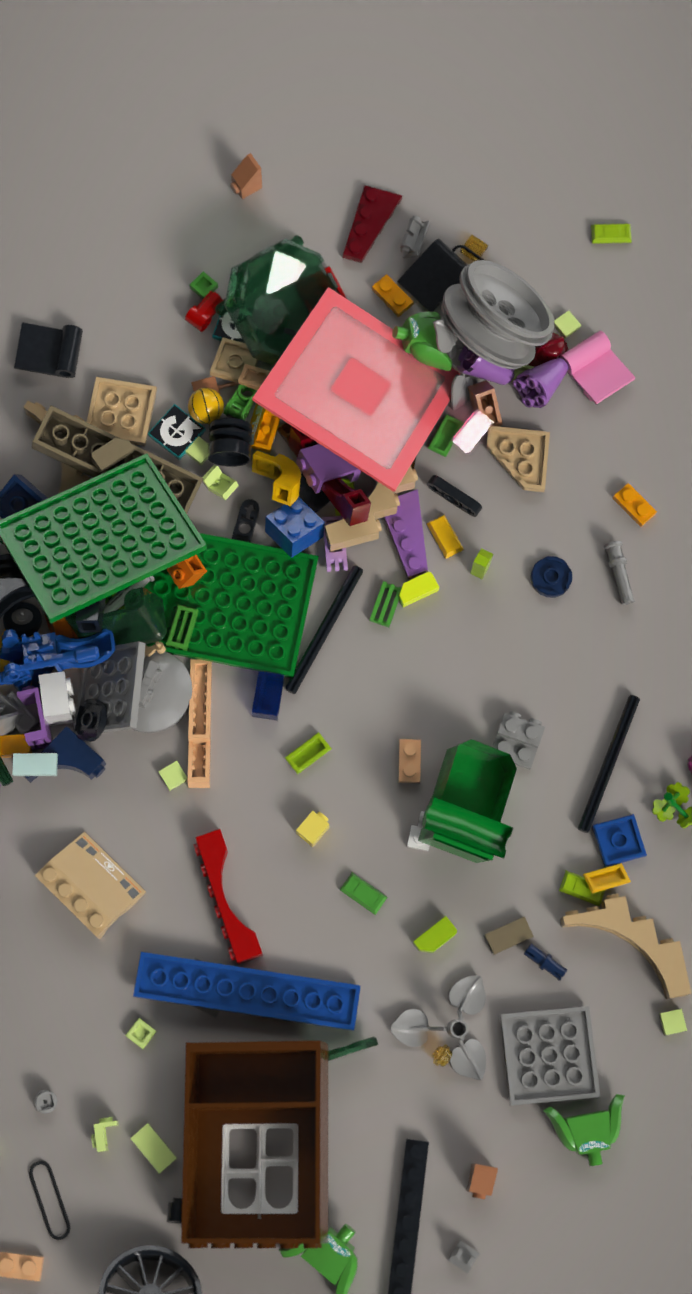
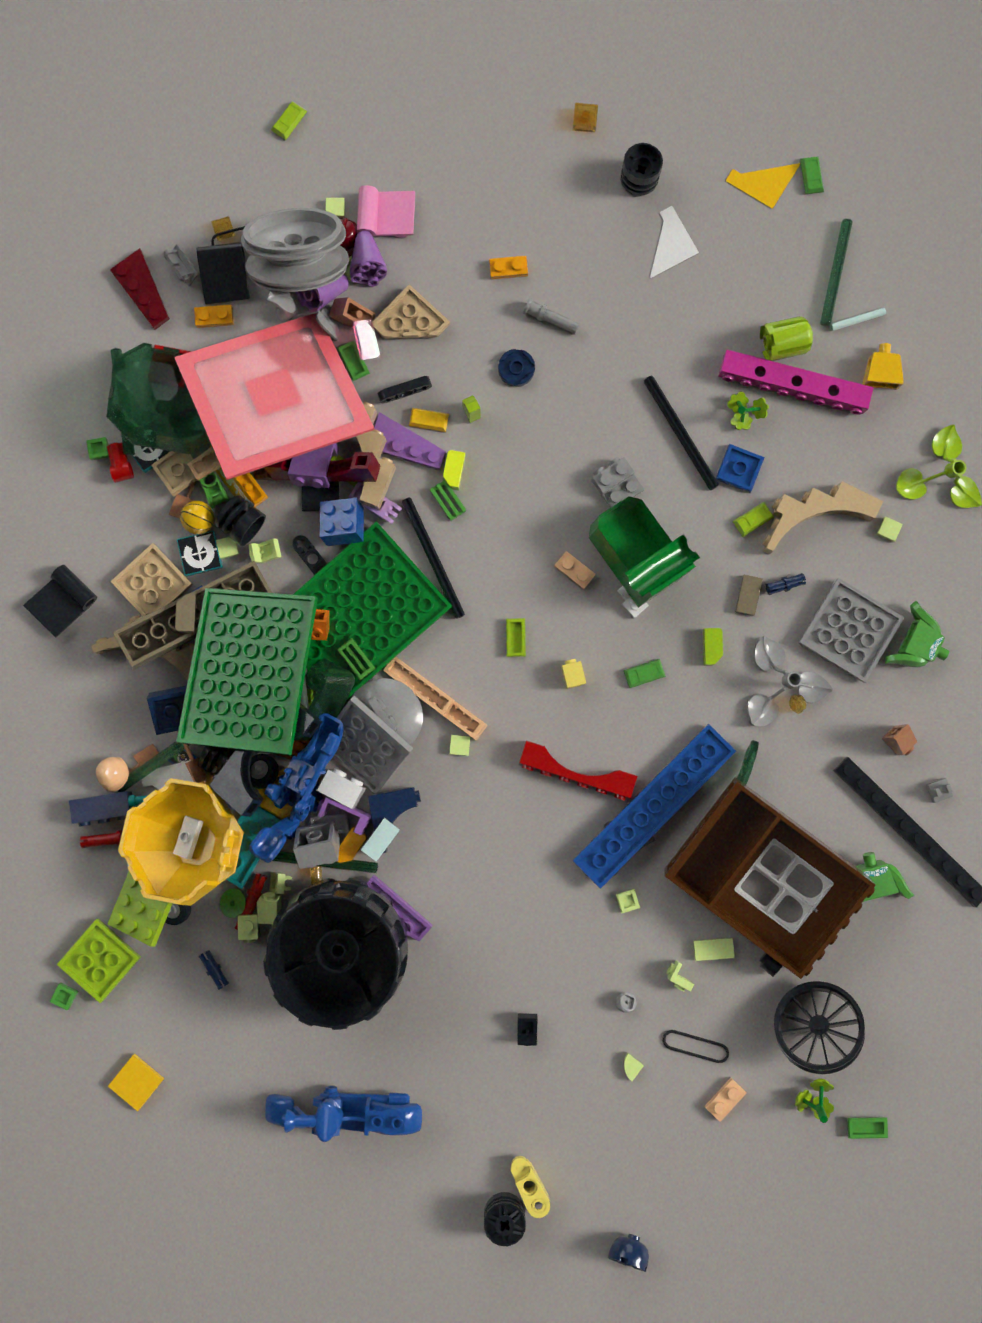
camera: 50 degrees left, 10 degrees up
(90, 720) = (377, 775): black tile -> none
(90, 884) = (496, 861): tan piece -> none
(159, 647) = (358, 686): tan piece -> none
(247, 177) = (35, 351): nougat slope -> none
(268, 695) = (452, 635): clear blue panel -> none
(283, 471) = (294, 498): yellow arch -> none
(419, 339) = (268, 320): bright green torso -> none
(606, 878) = (760, 497): yellow tile -> none

